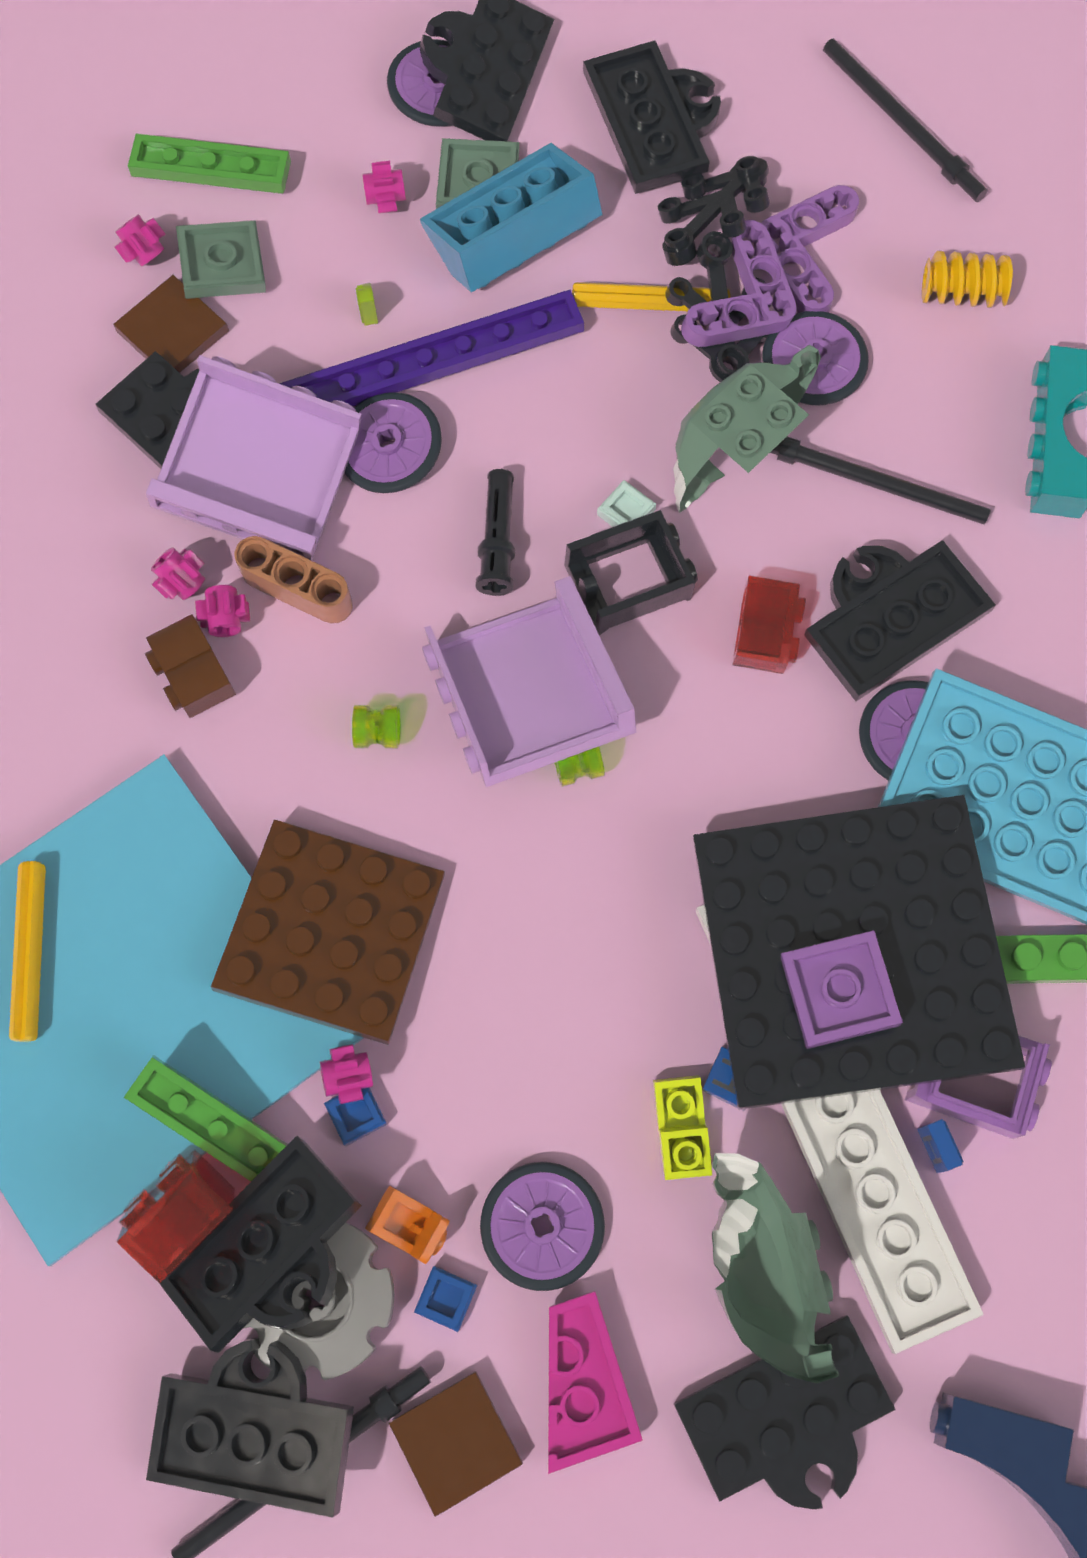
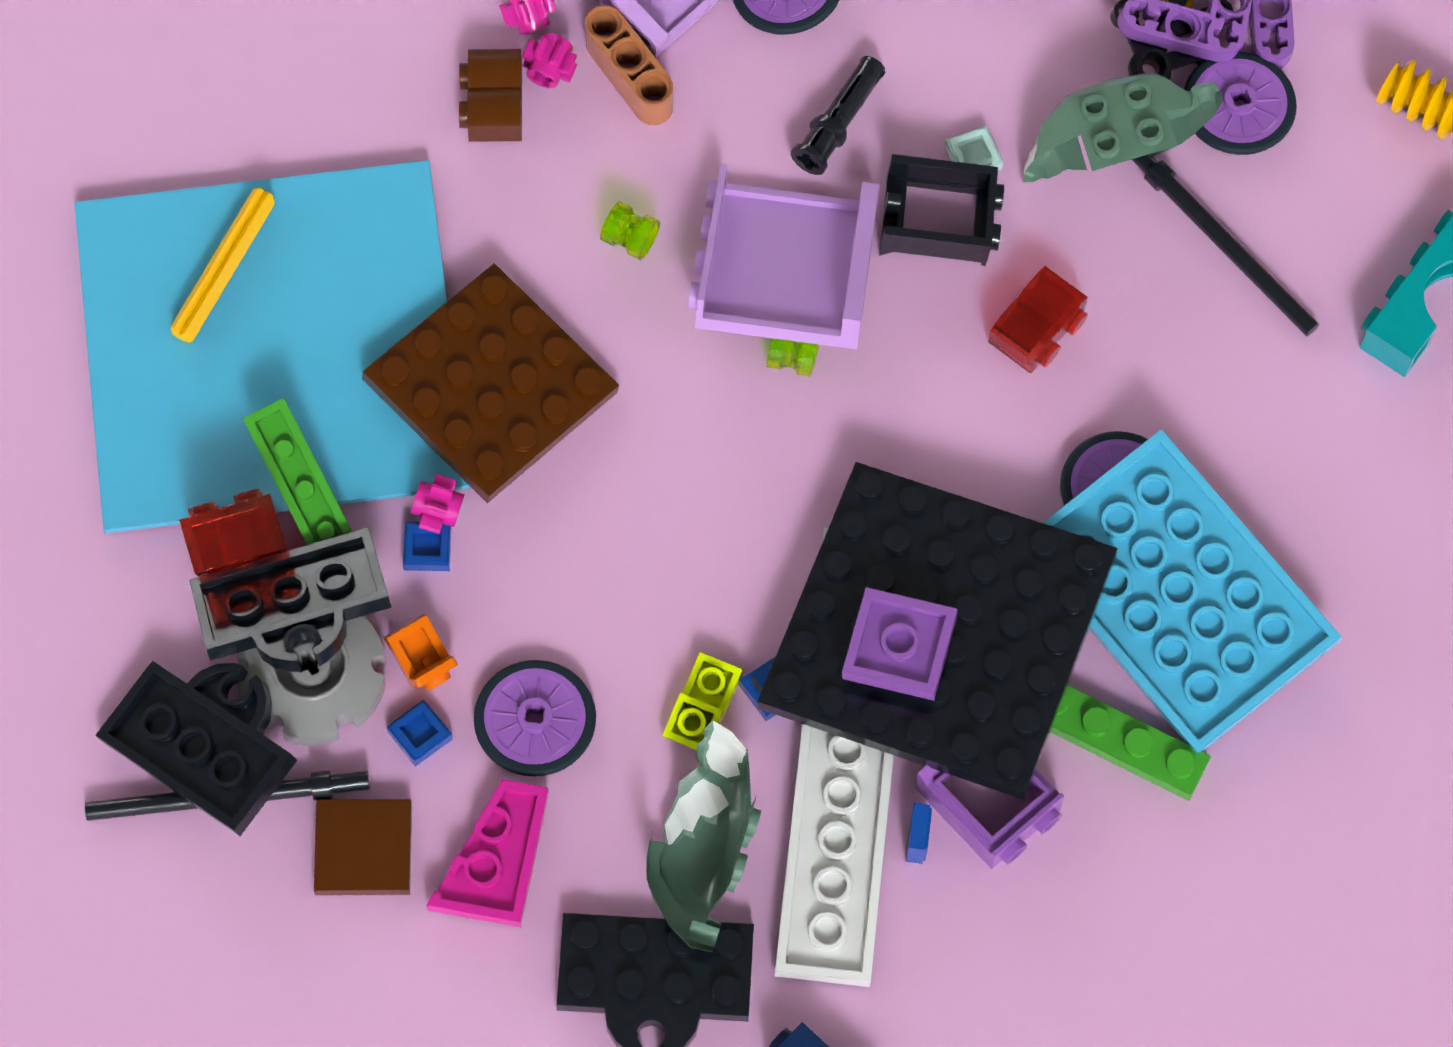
camera: 25 degrees right, 5 degrees down
(894, 614) = (1165, 371): black plate -> none

